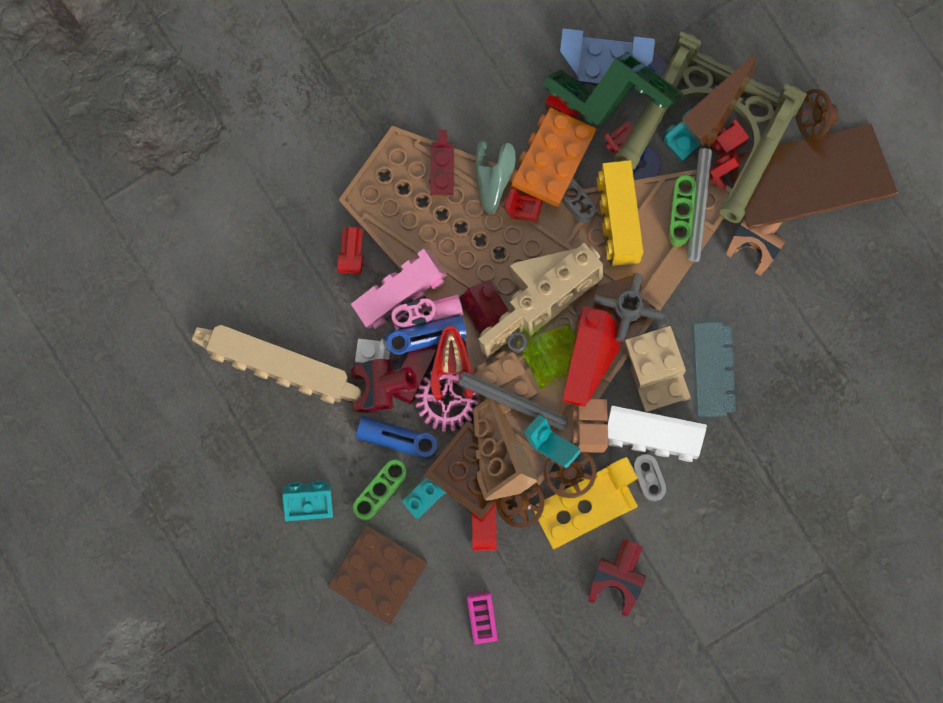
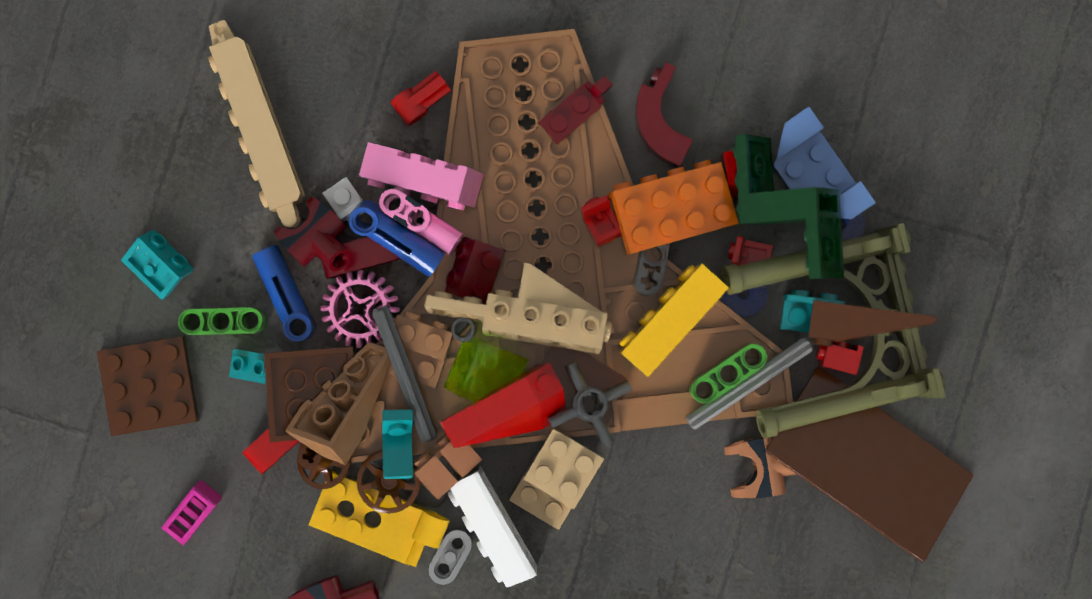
camera: 50 degrees right, 10 degrees up
(450, 359) = (392, 280): red animal -> none
(493, 179) = (600, 171): sand green animal -> none
(494, 131) = (653, 130): none -> dark red arch
(710, 370) = (596, 530): clear light blue windscreen -> none
(724, 164) = (807, 373): red bracket -> none
(819, 114) = (938, 421): reddish brown wheel -> none

